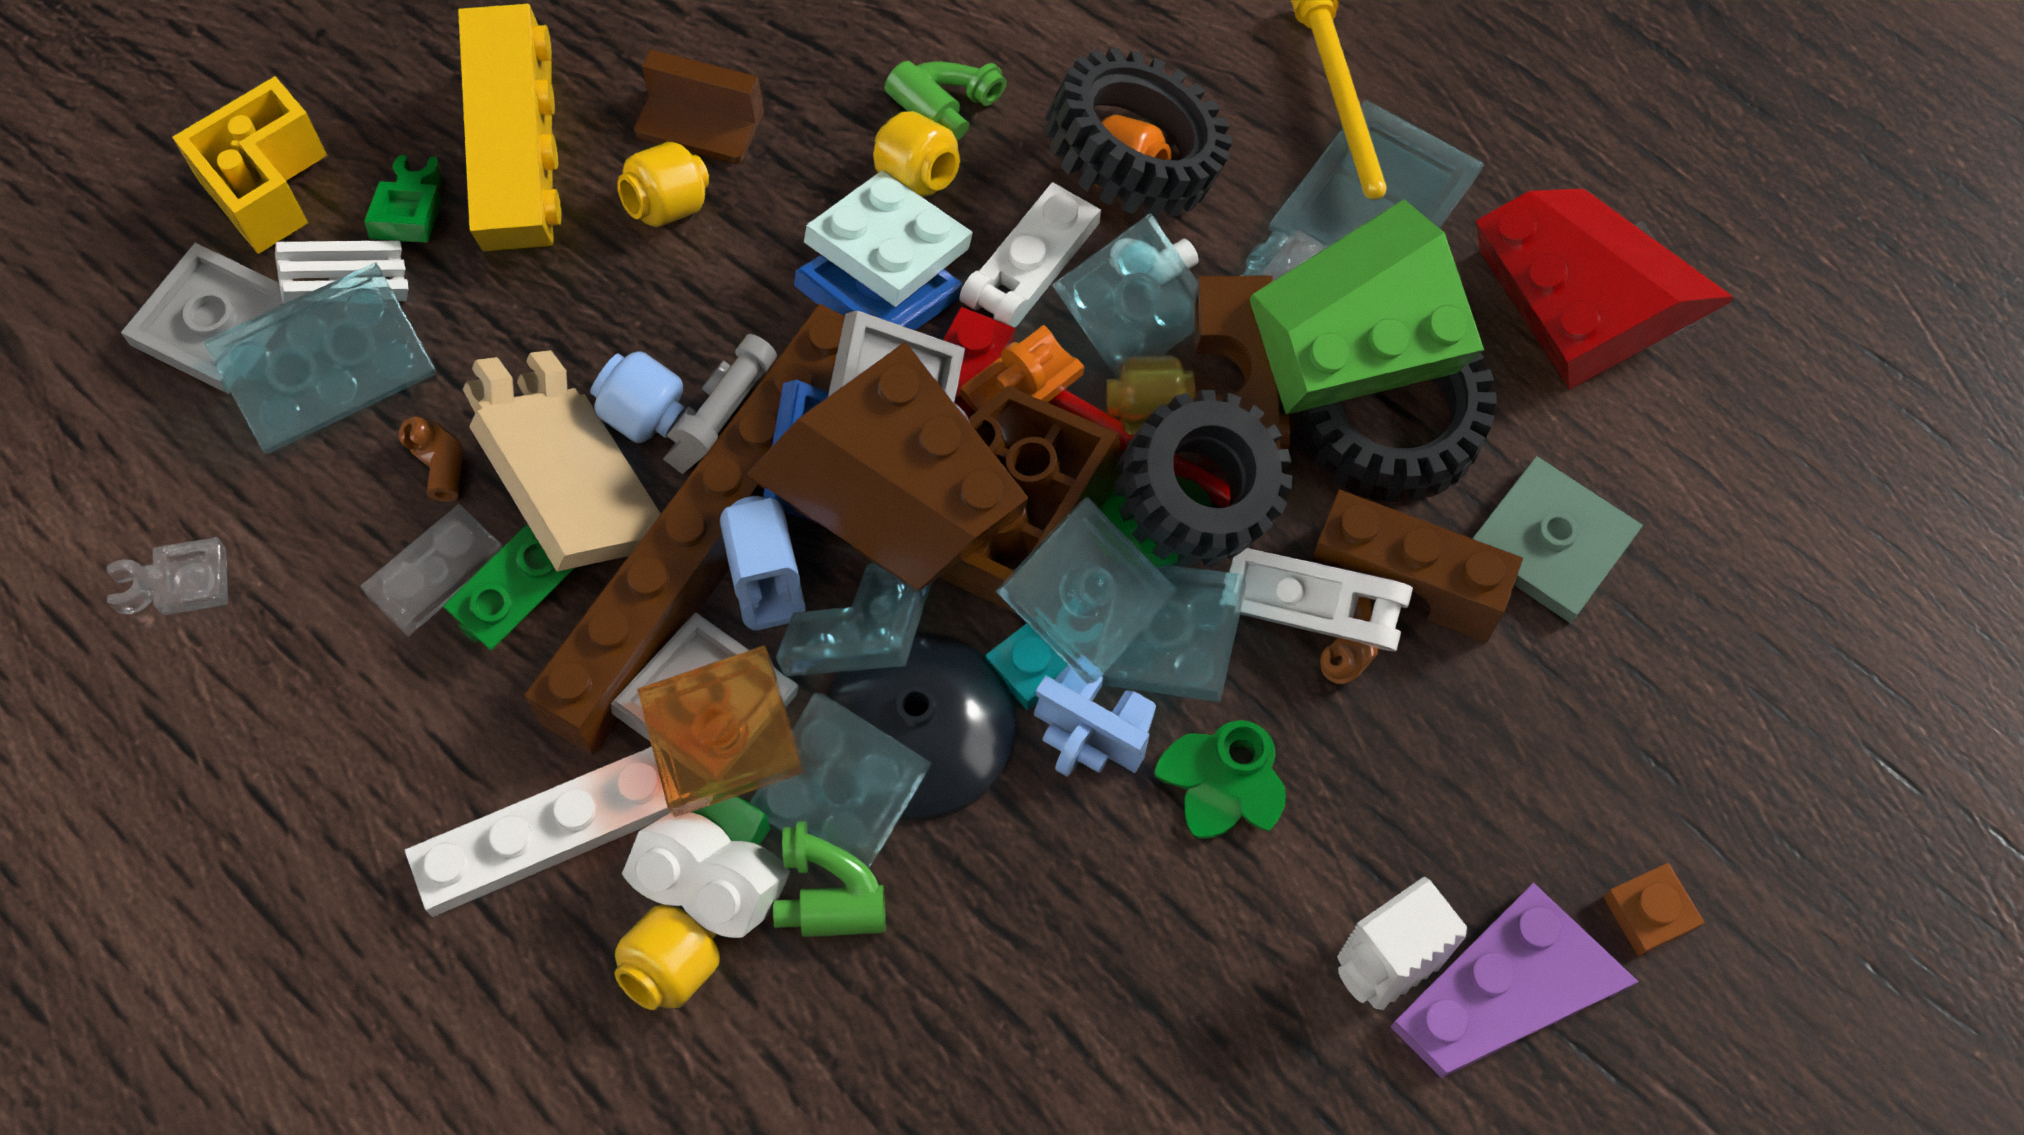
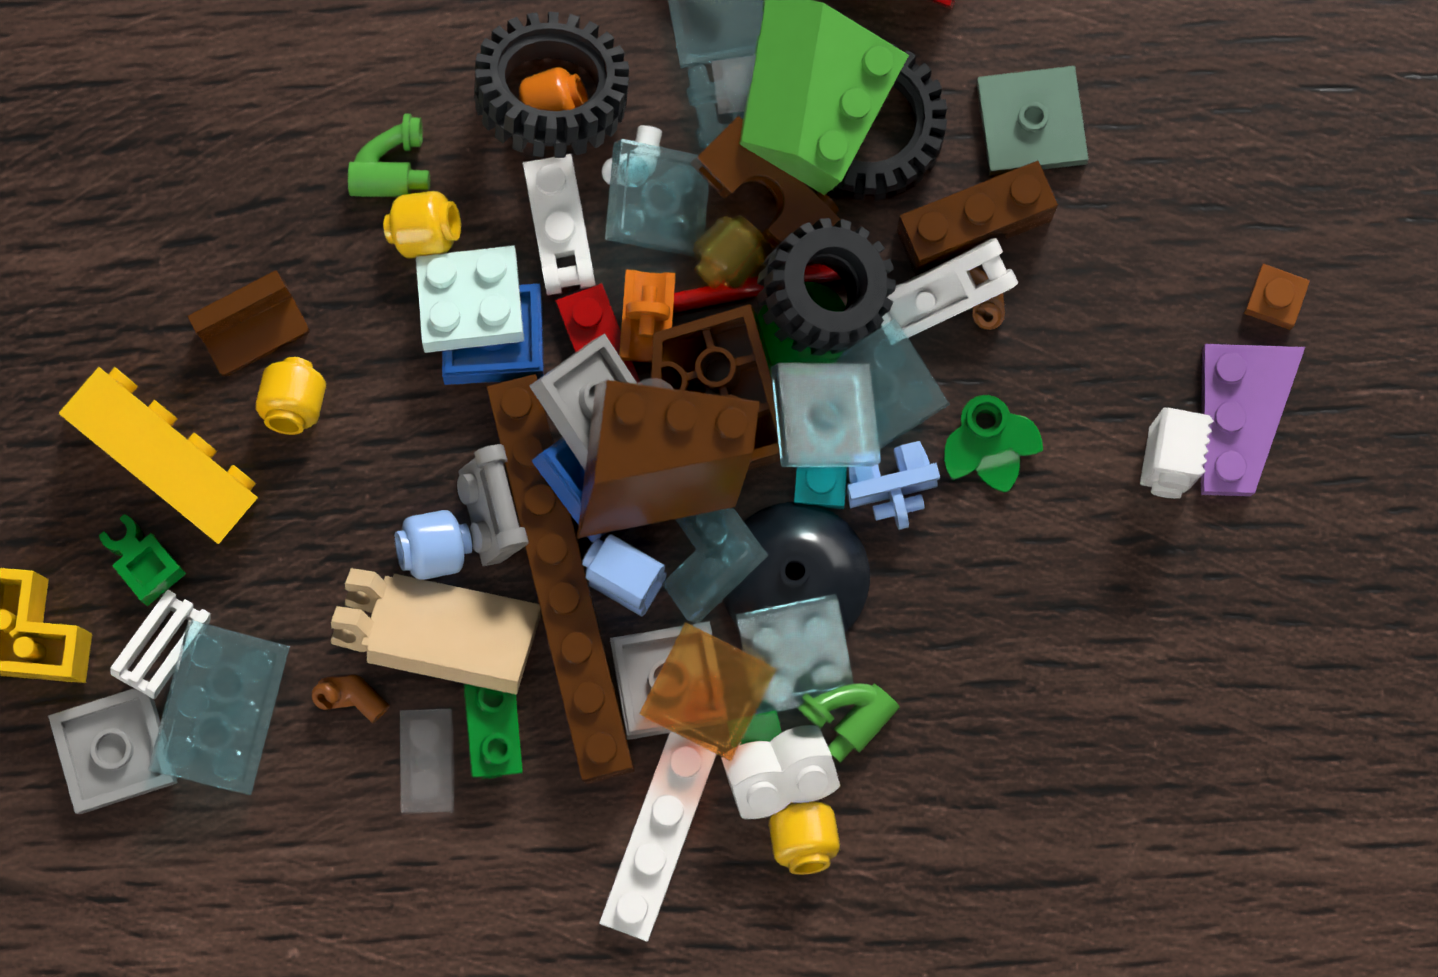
camera: 40 degrees left, 15 degrees up
(178, 581) = (292, 910): clear plate -> none

